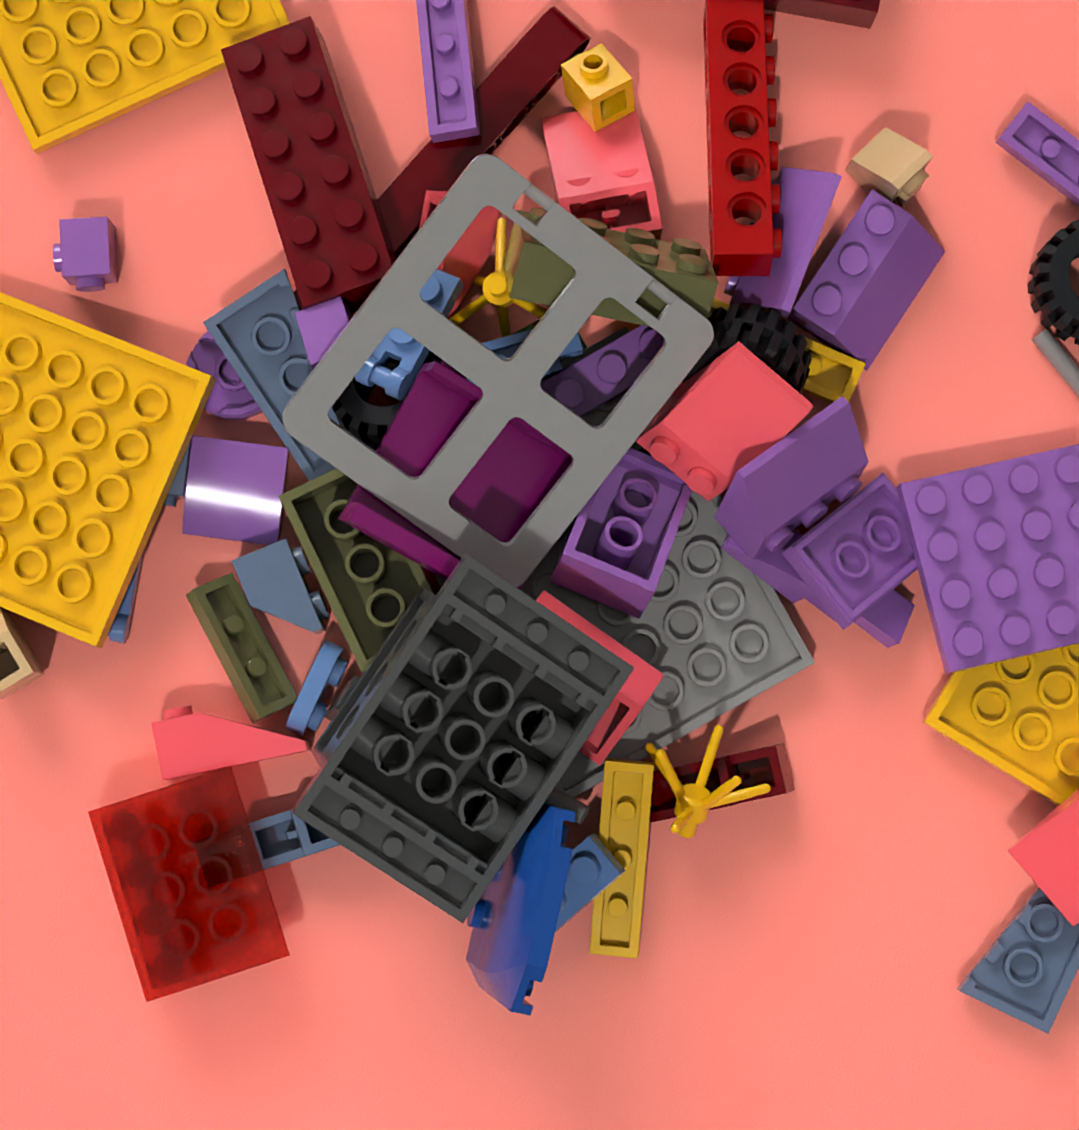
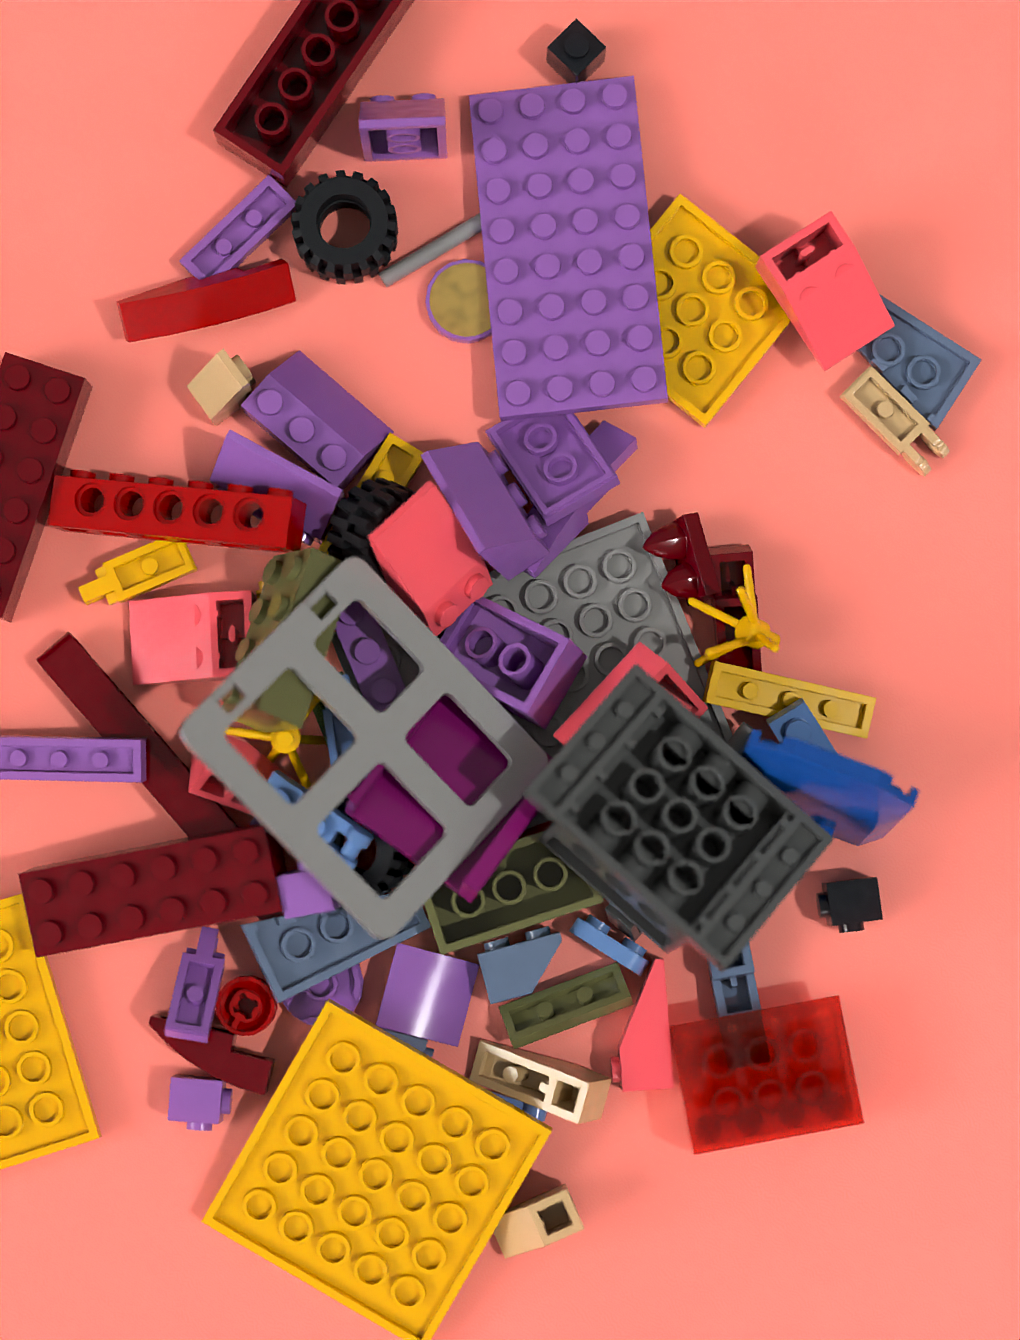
camera: 85 degrees left, 0 degrees up
(142, 264) = (220, 1059): none -> dark red slope
(153, 632) = (541, 1081): none -> tan slope
(197, 290) = (246, 1005): none -> red wheel
(207, 231) = (196, 989): none -> medium lavender hinge
(398, 957) = (850, 903): none -> black brick
(598, 87) = (114, 630): yellow brick -> none
(668, 107) = (139, 572): none -> yellow hinge
(785, 715) = (686, 544): none -> dark red tile
(964, 938) = (892, 418): none -> tan hinge
(984, 137) = (206, 302): none -> red slope
(1027, 423) = (459, 301): none -> pearl gold tile

